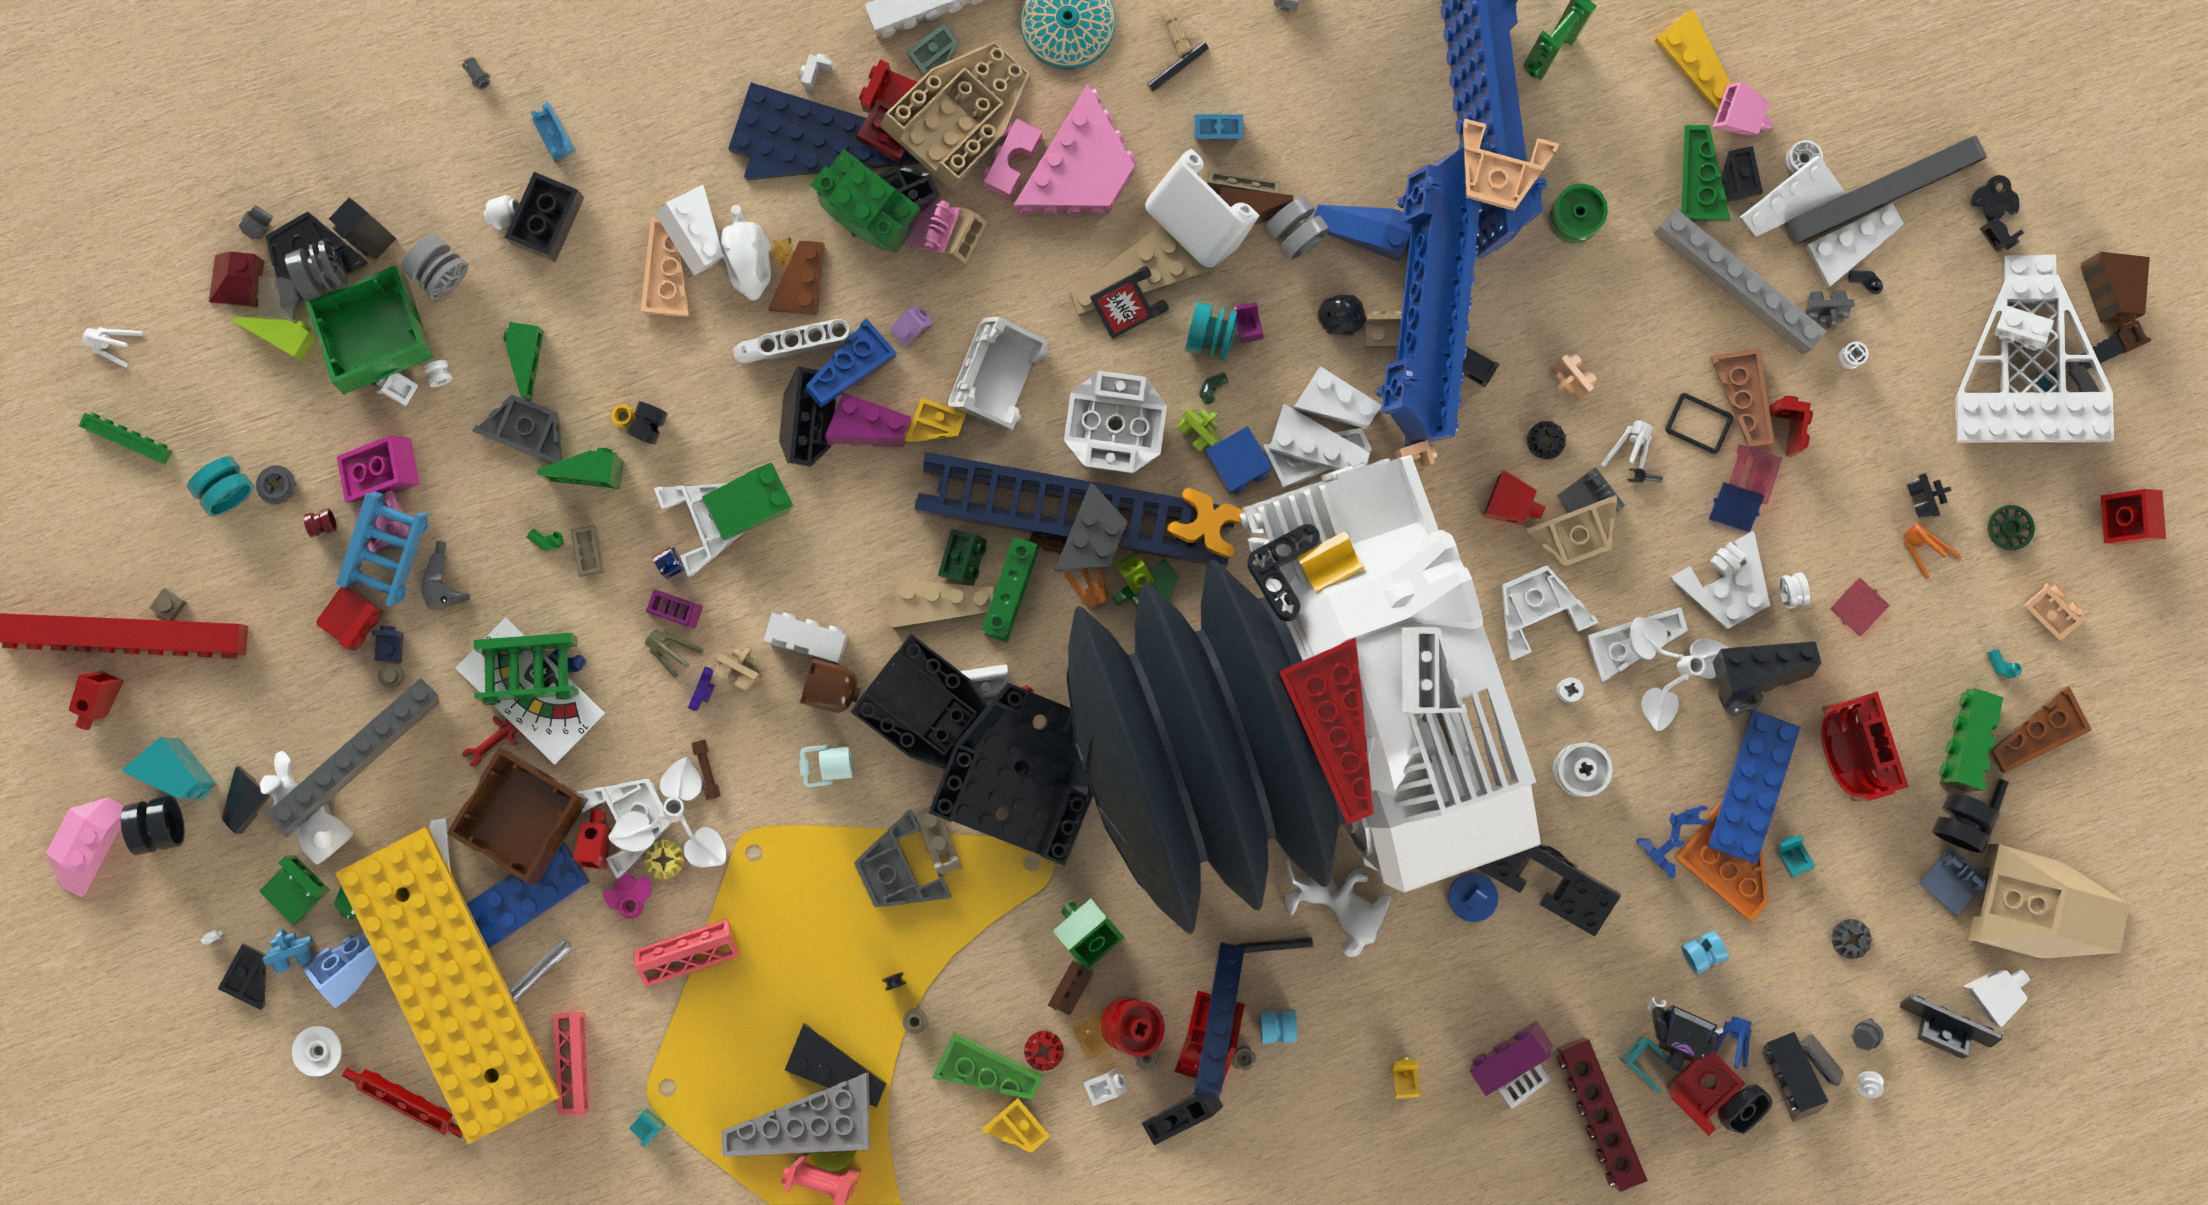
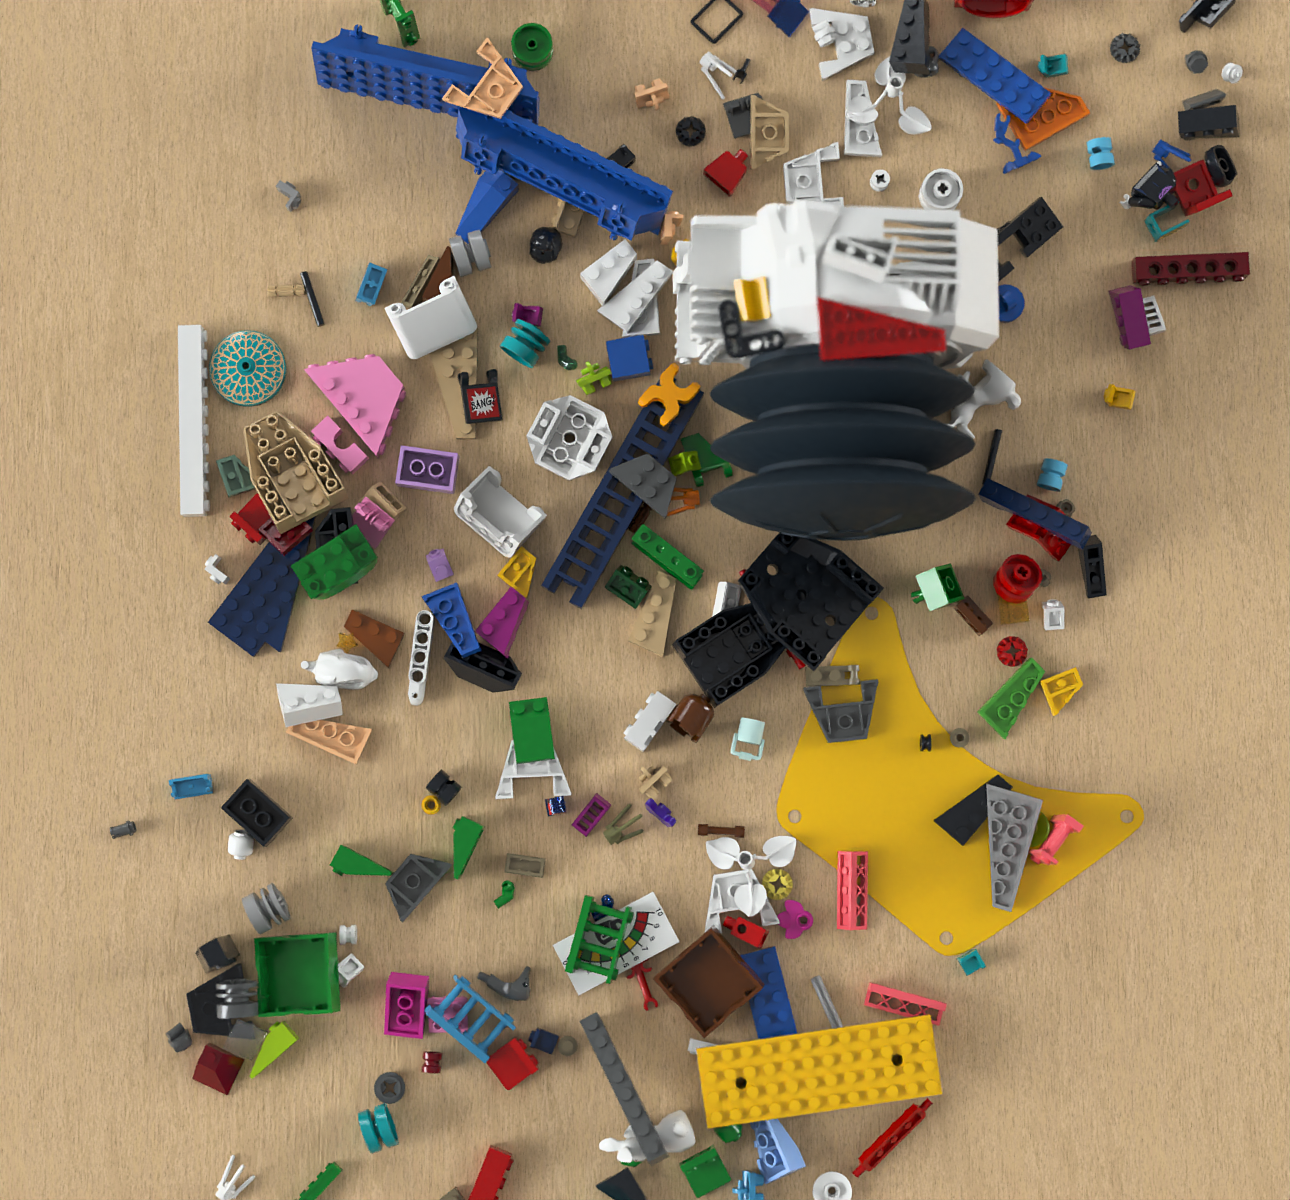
camera: 75 degrees left, 0 degrees up
(1018, 270) = (427, 469): none -> lavender brick

